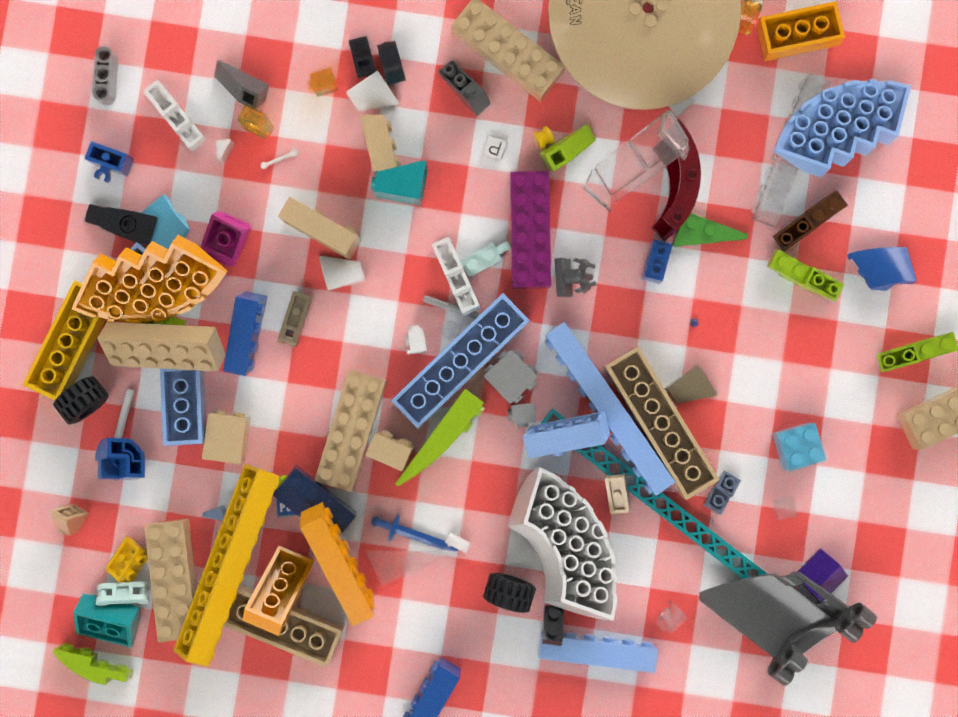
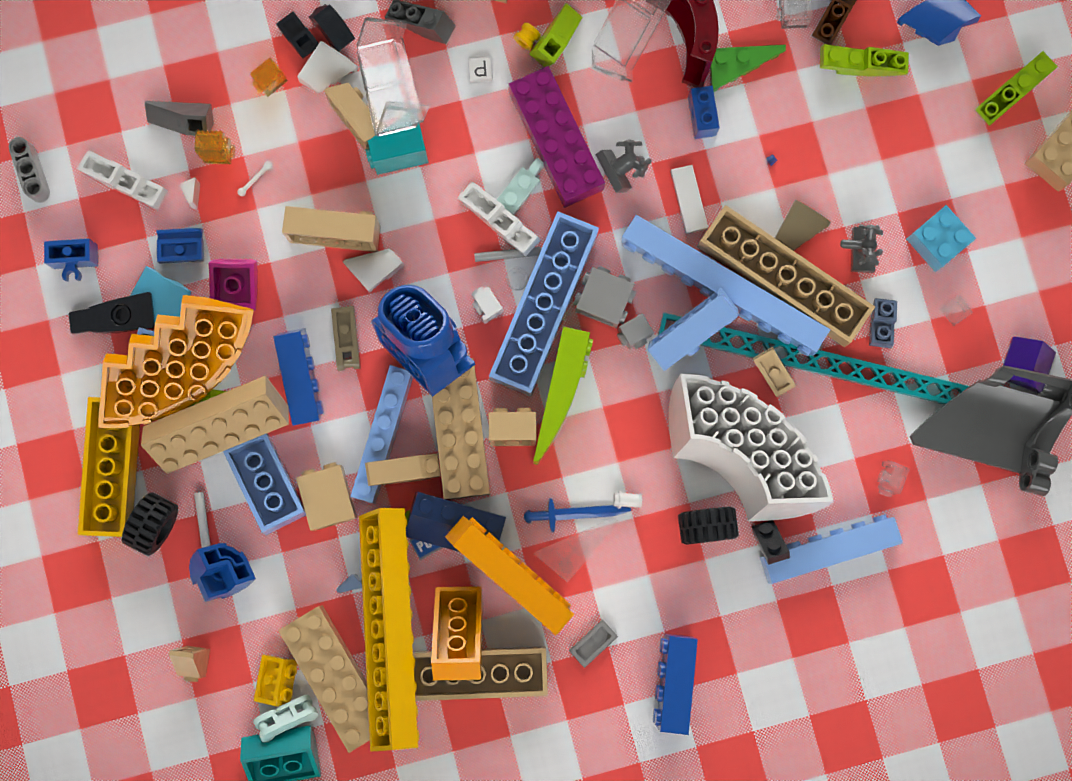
camera: 30 degrees left, 5 degrees down
(197, 188) = (180, 245): none -> blue plate
(289, 408) = (383, 429): none -> light blue brick
(292, 444) = (402, 469): none -> tan slope
(350, 349) = (421, 337): none -> blue brick
(382, 640) = (593, 643): none -> light grey tile
(416, 126) = (388, 77): none -> clear piece
(613, 326) = (689, 199): none -> white tile
(733, 427) = (863, 248): none -> dark grey piece

